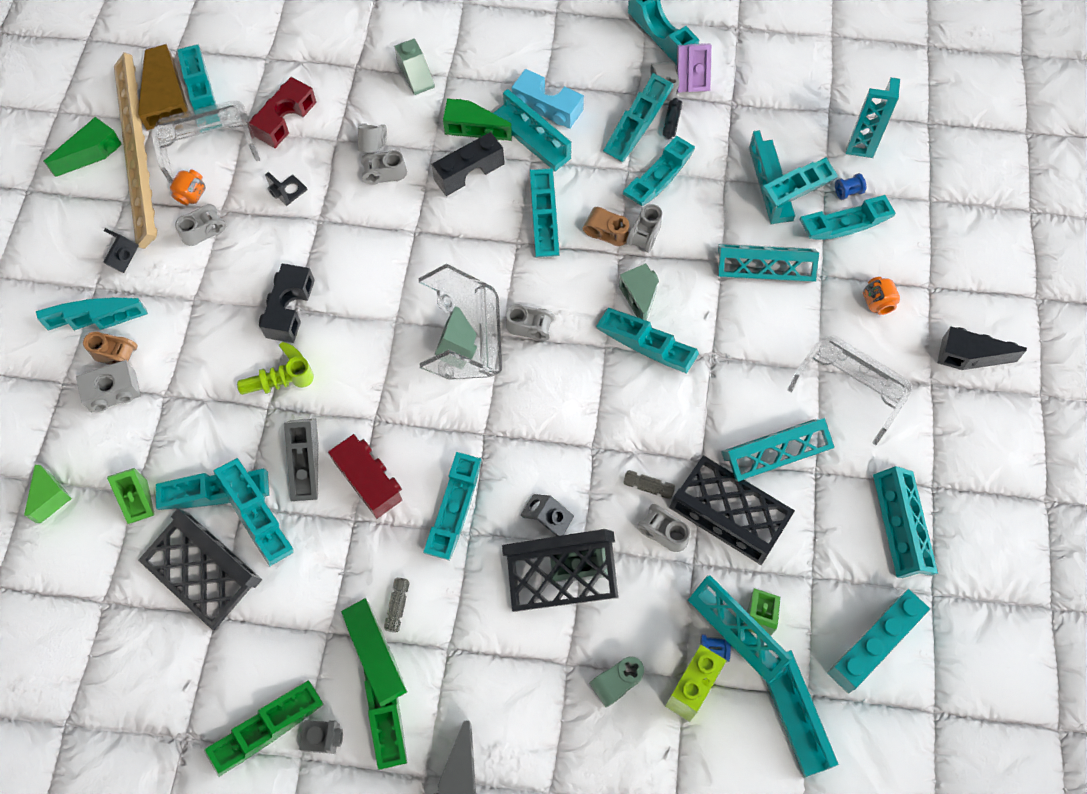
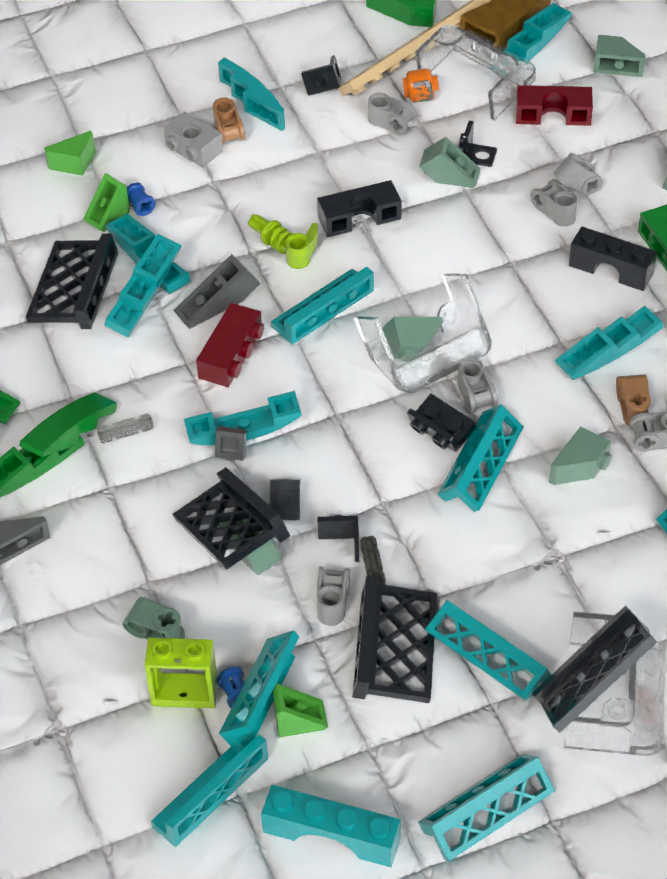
camera: 60 degrees right, 15 degrees down
(146, 464) = (142, 202): none -> blue bush
(266, 44) = (618, 57): none -> sand green slope
(290, 215) = (449, 165): none -> sand green slope
(374, 379) = (324, 304): none -> teal fence
(471, 528) = (230, 443): none -> dark grey plate
(548, 363) = (441, 422): none -> black bracket
(595, 357) = (477, 446): none -> teal fence
(614, 480) = (340, 528): none -> black bracket
(646, 340) = (530, 491): teal slope -> none
(842, 393) = (593, 668): none -> black fence

